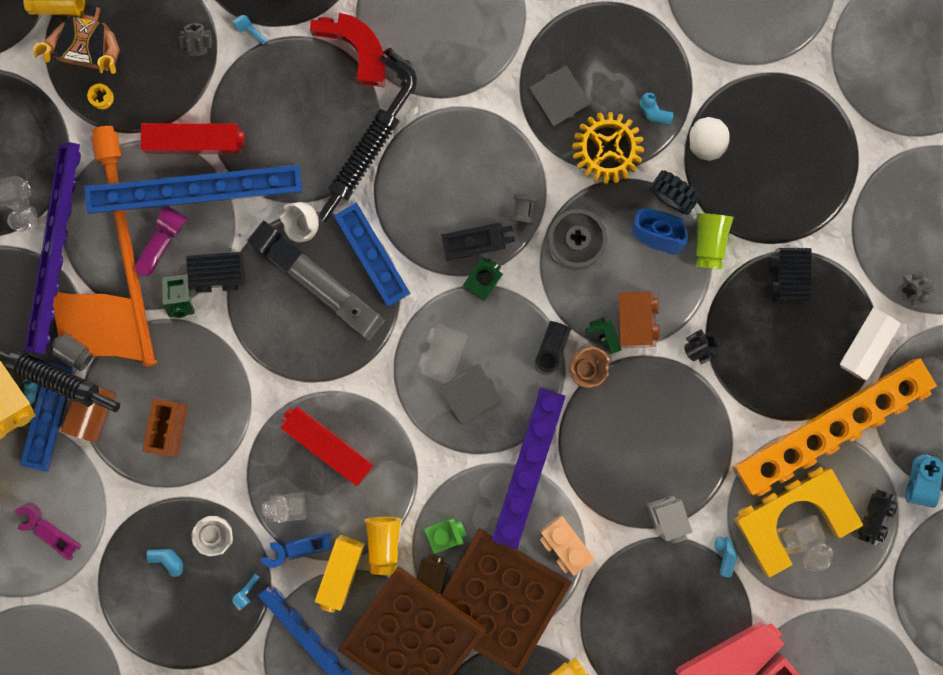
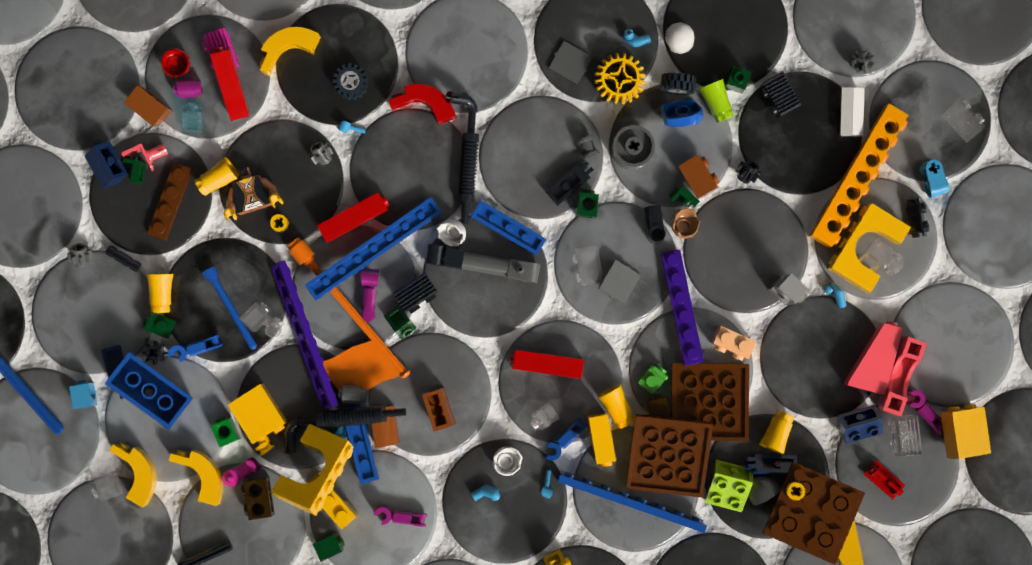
camera: 35 degrees left, 0 degrees up
(750, 227) = (737, 79): none -> dark green brick

